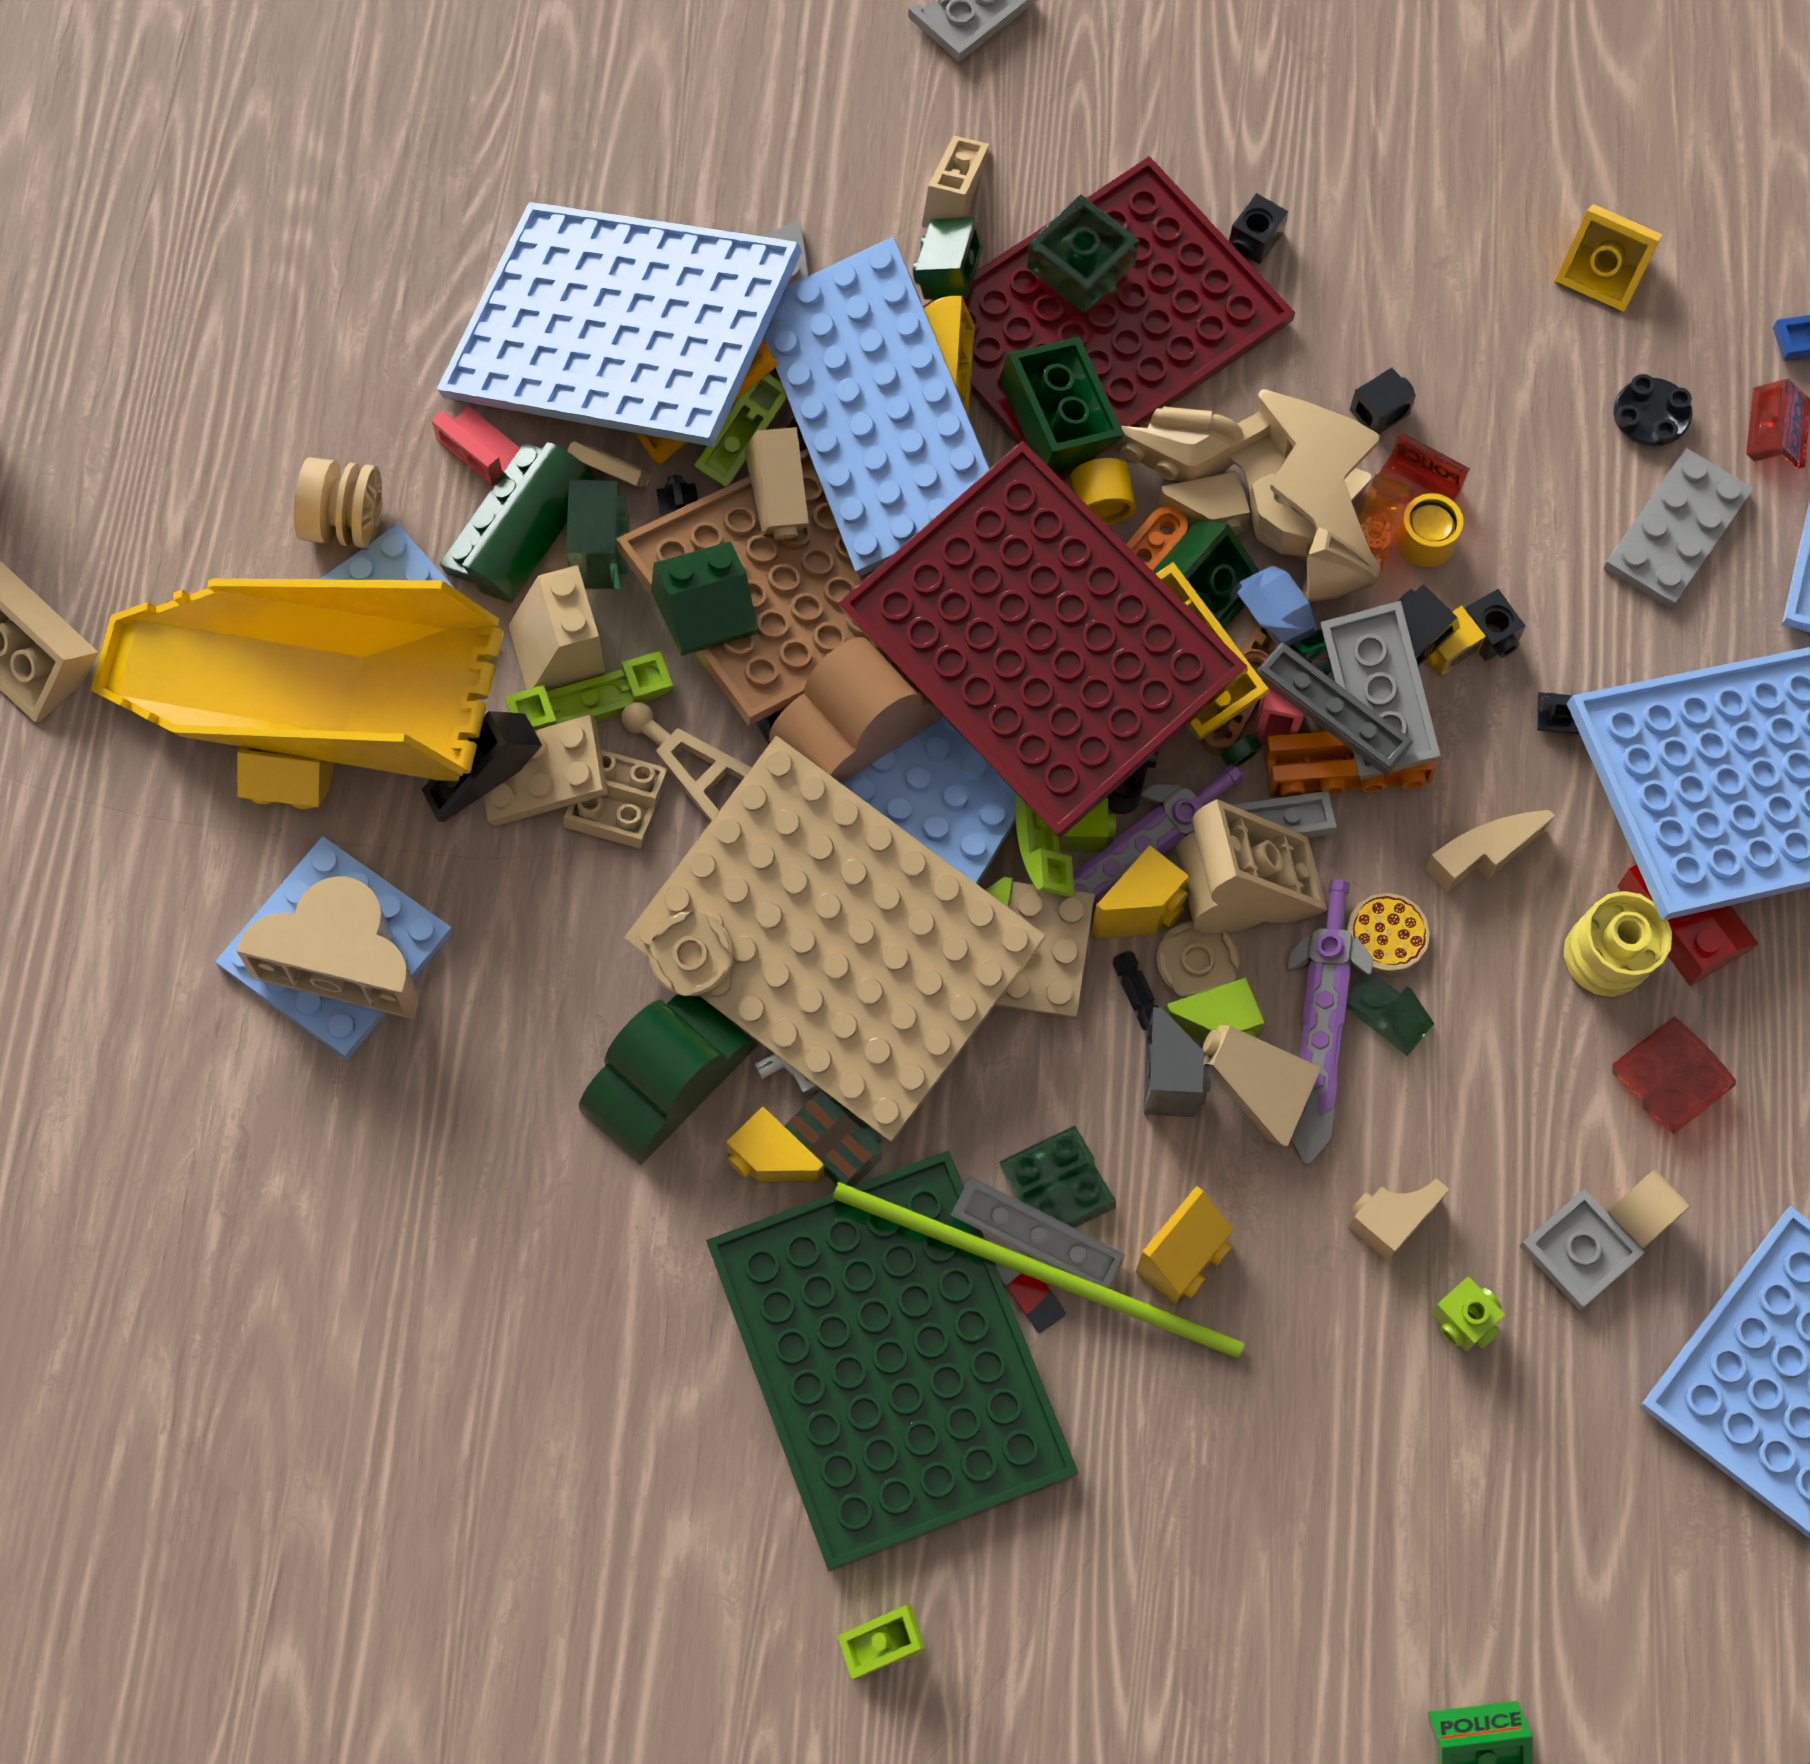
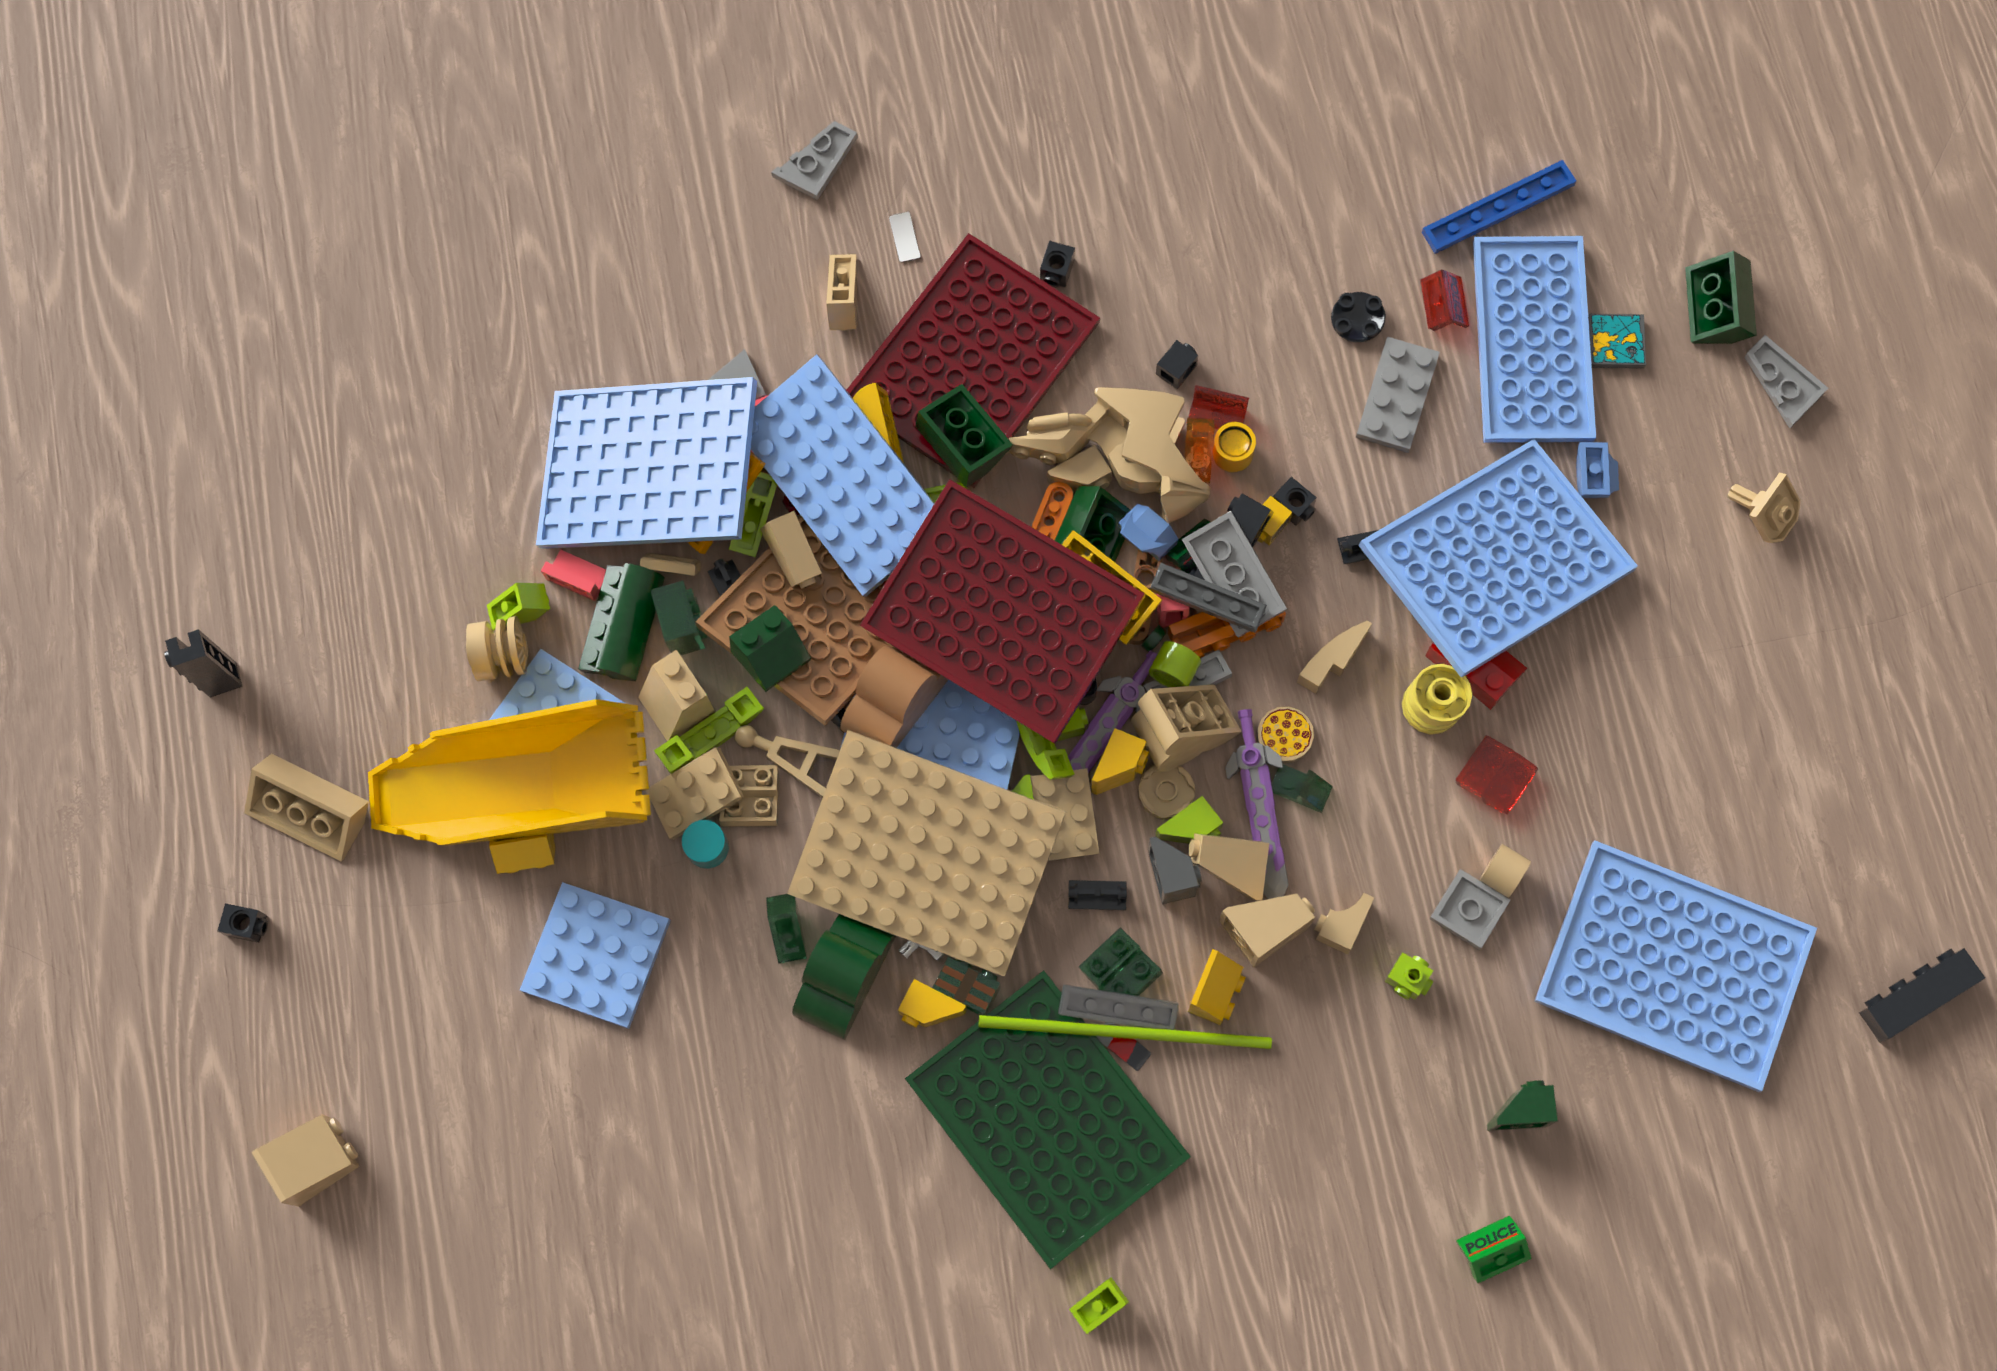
camera: 10 degrees left, 5 degrees up
(333, 949) = (599, 960): tan brick -> none
(396, 451) = (522, 600): none -> lime slope
(501, 752) = (666, 789): black slope -> none
(533, 842) = (705, 844): none -> teal piece
(607, 986) = (786, 928): none -> clear green slope
(691, 954) = (836, 893): tan tile -> none
(948, 258) = (855, 349): dark green brick -> none
(1056, 1072) = (1097, 895): none -> black hinge
(1061, 140) = (904, 236): none -> white sticker
(1082, 253) = (945, 321): brick -> none
(1105, 489) = (1009, 485): yellow piece -> none
(1135, 986) = (1132, 822): black axle -> none
(1261, 787) = (1174, 665): none -> lime piece
(1284, 1180) = (1267, 924): none -> tan slope
(1588, 1553) = (1527, 1108): none -> dark green slope
(1608, 257) = (1299, 215): yellow slope -> none

